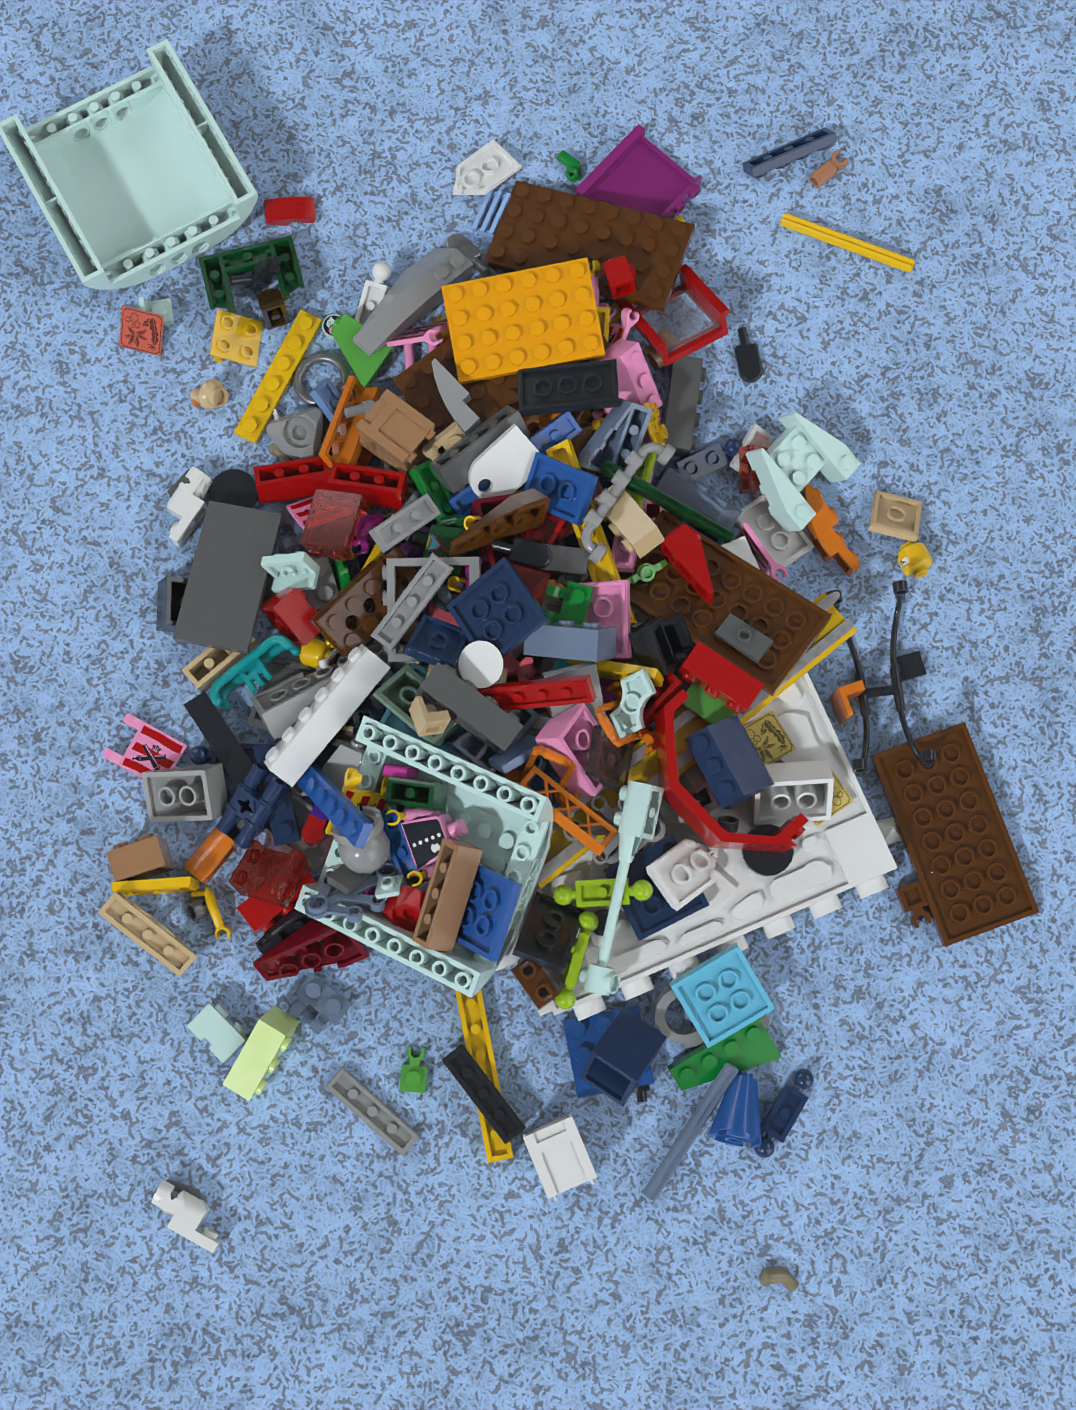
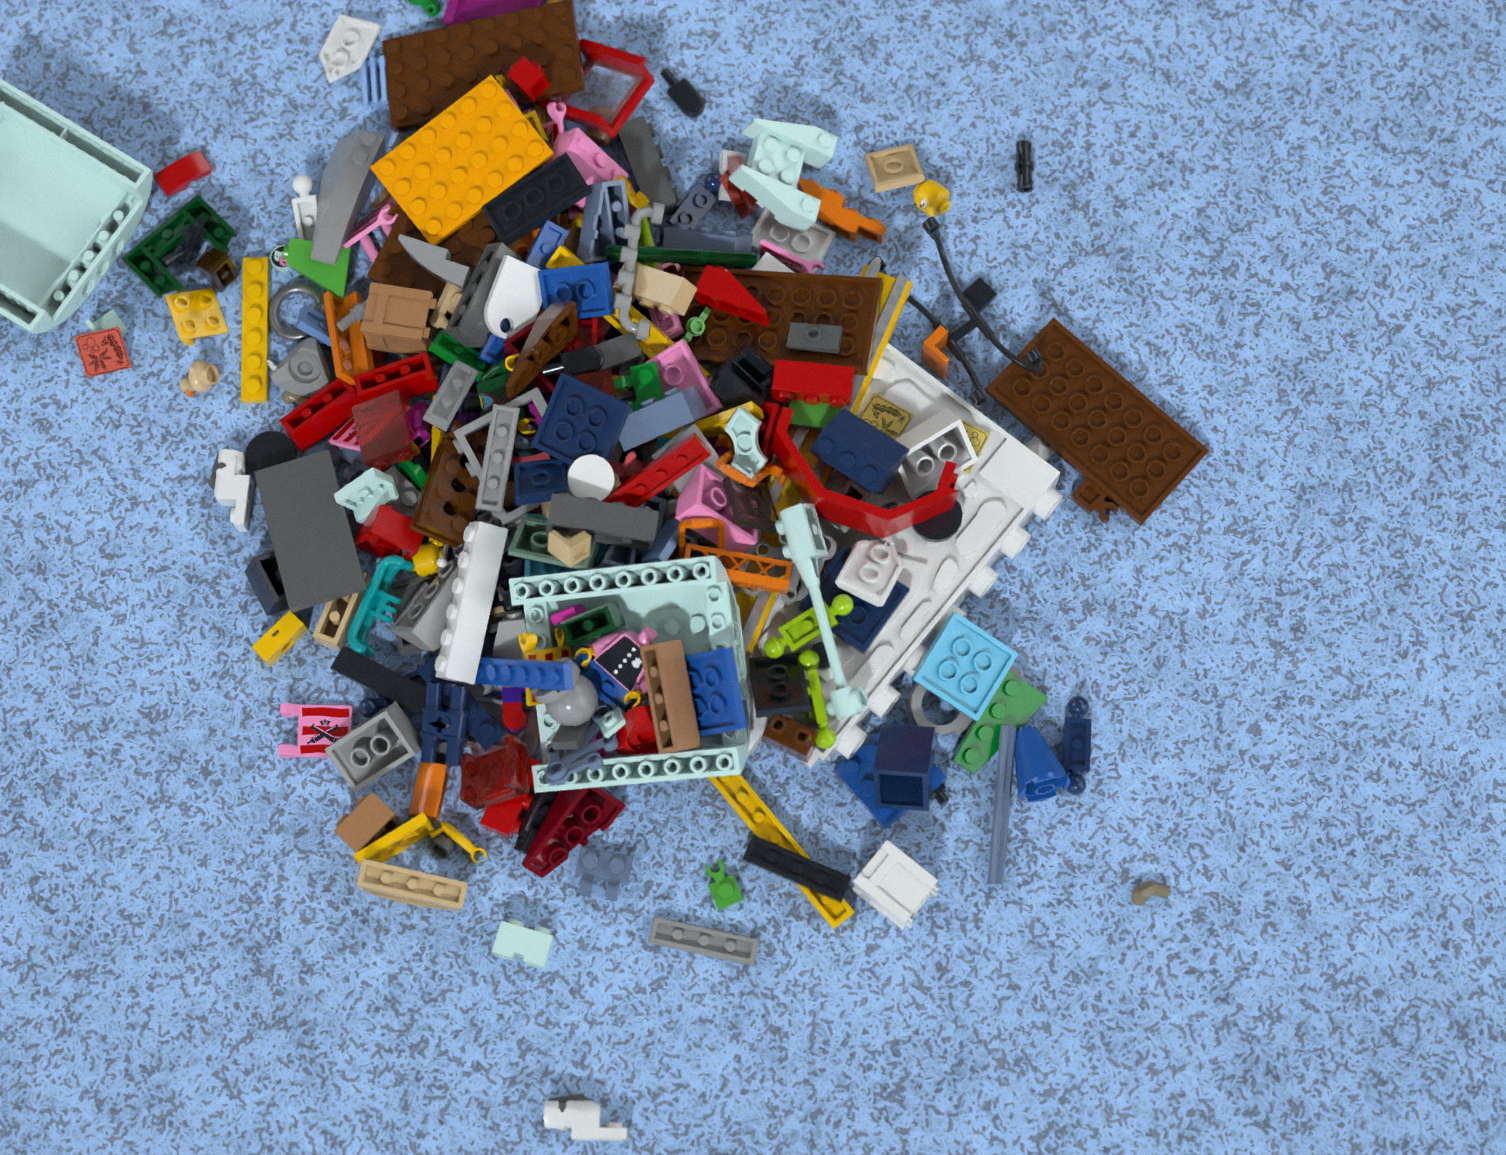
camera: 20 degrees left, 5 degrees down
(166, 654) = (271, 647): none -> yellow piece
(261, 1053) = (574, 942): yellowish green wedge -> none
(469, 250) = (374, 125): flat silver piece -> none
(1010, 572) = (1024, 166): none -> black pin

